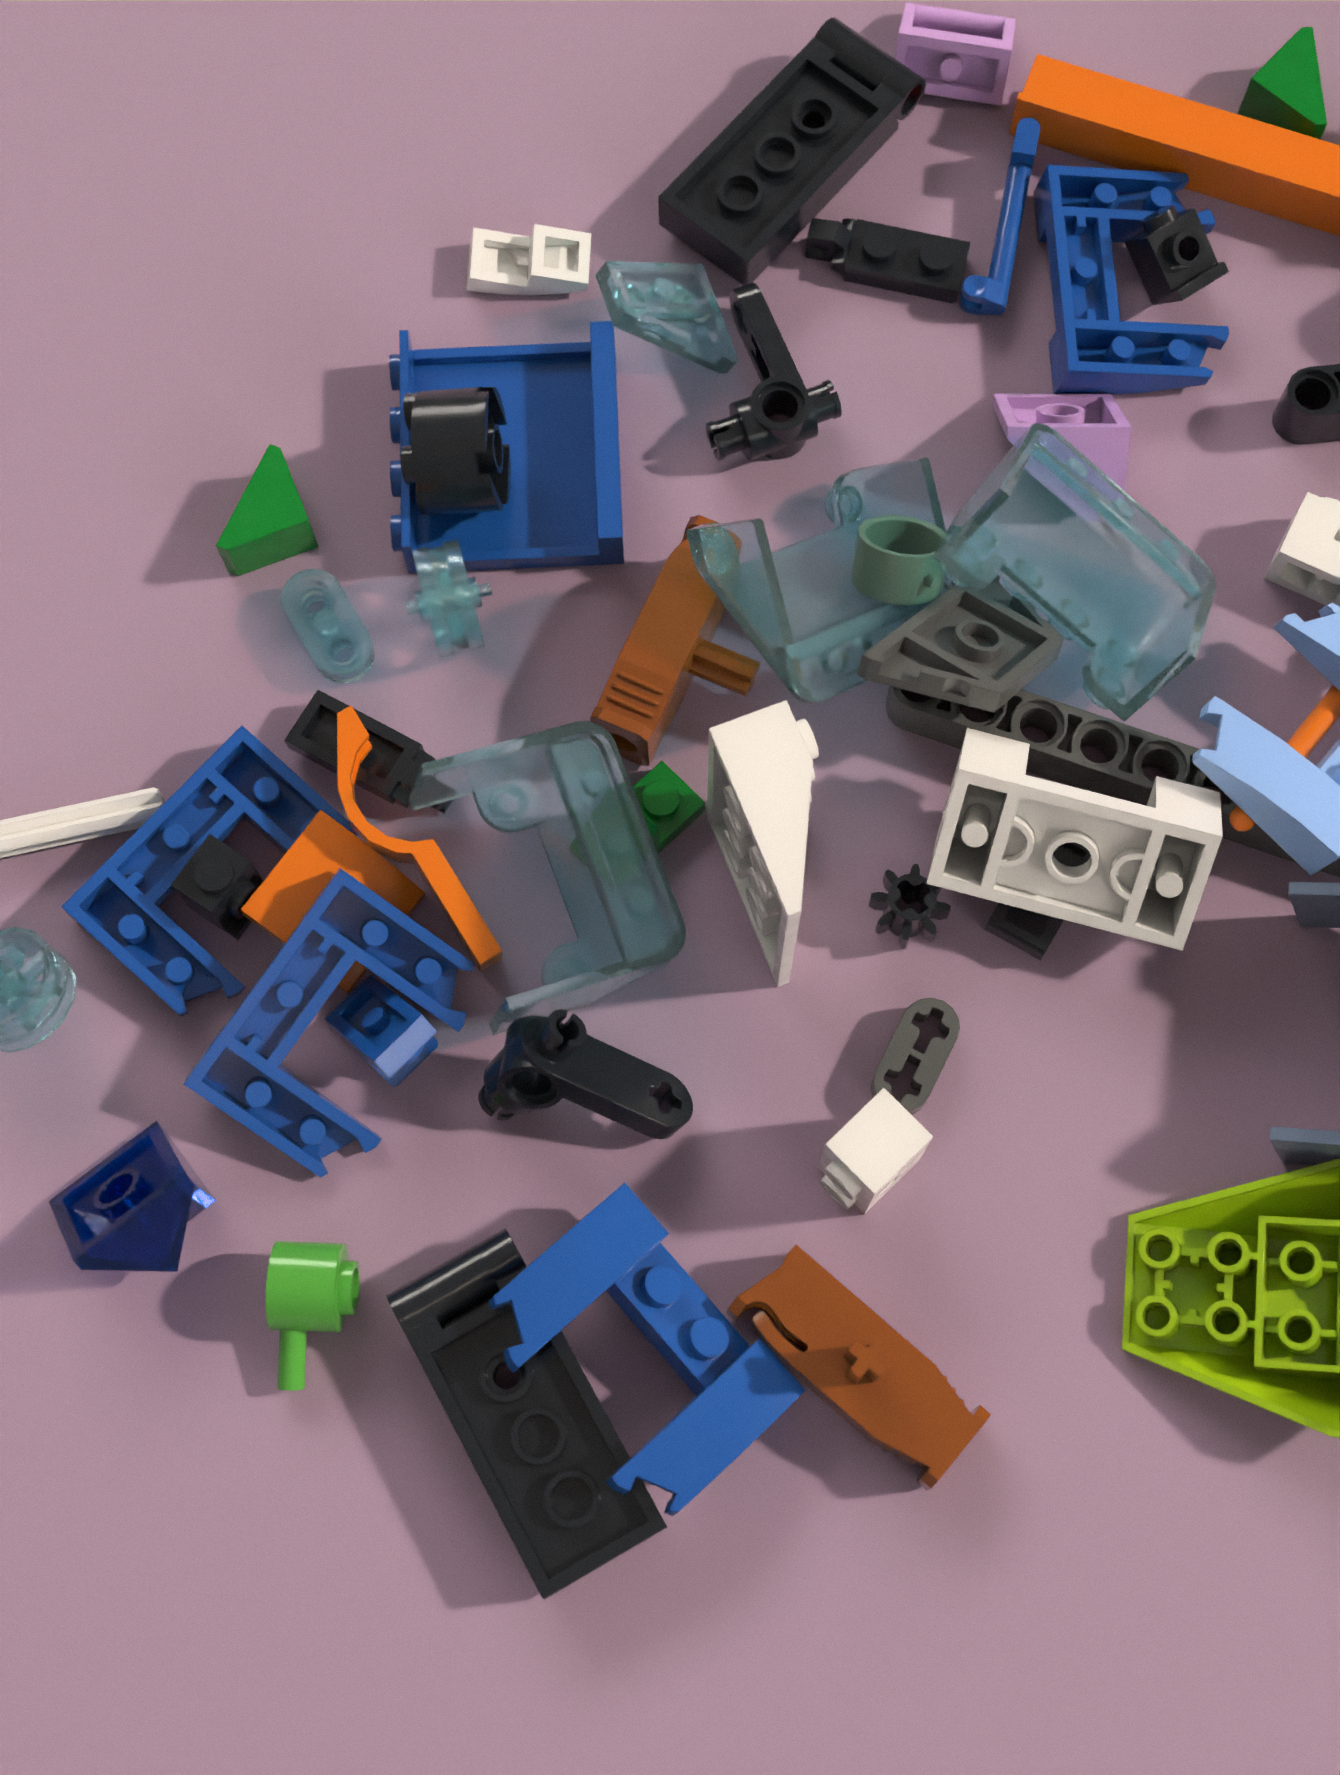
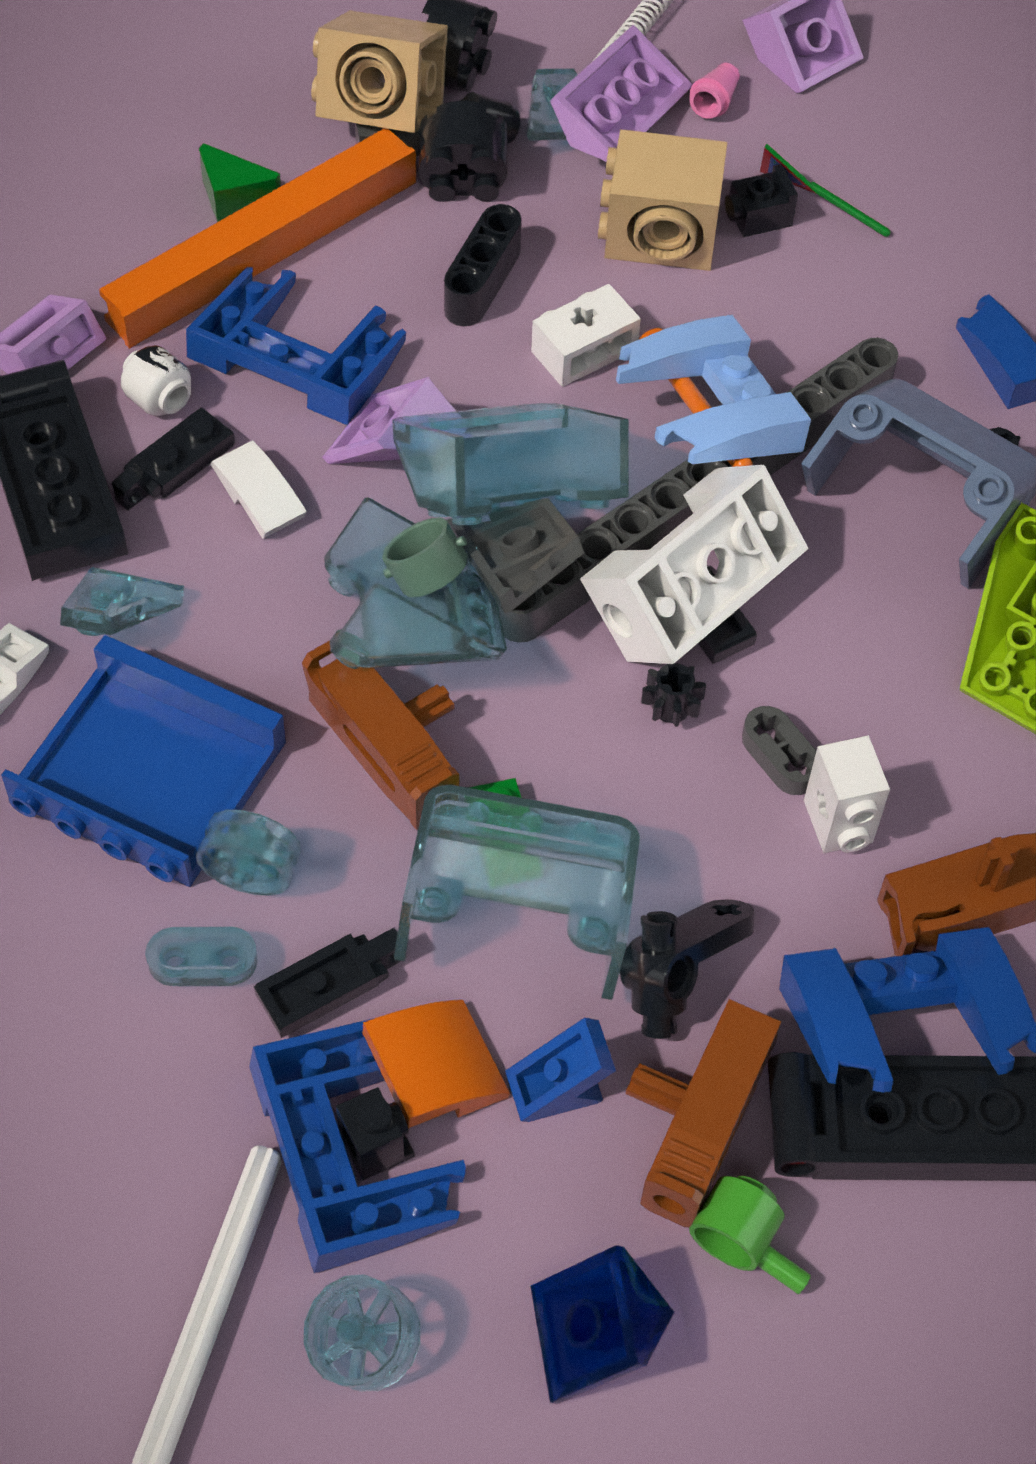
camera: 65 degrees left, 15 degrees down
(243, 1062) = (532, 1184): blue wedge -> none
(267, 520) = (83, 946): green slope -> none
(416, 1192) = (704, 1111): none -> dark orange piece
(425, 854) = (457, 972): orange piece -> none
(456, 450) = (140, 778): black brick -> none
(760, 820) = (603, 721): white slope -> none
(778, 393) = (218, 567): black piece -> none
(904, 356) = (259, 487): none -> white slope
(968, 180) = (156, 381): none -> white head
(990, 294) = (246, 417): blue hinge -> none
(1173, 255) = (307, 302): black brick -> none

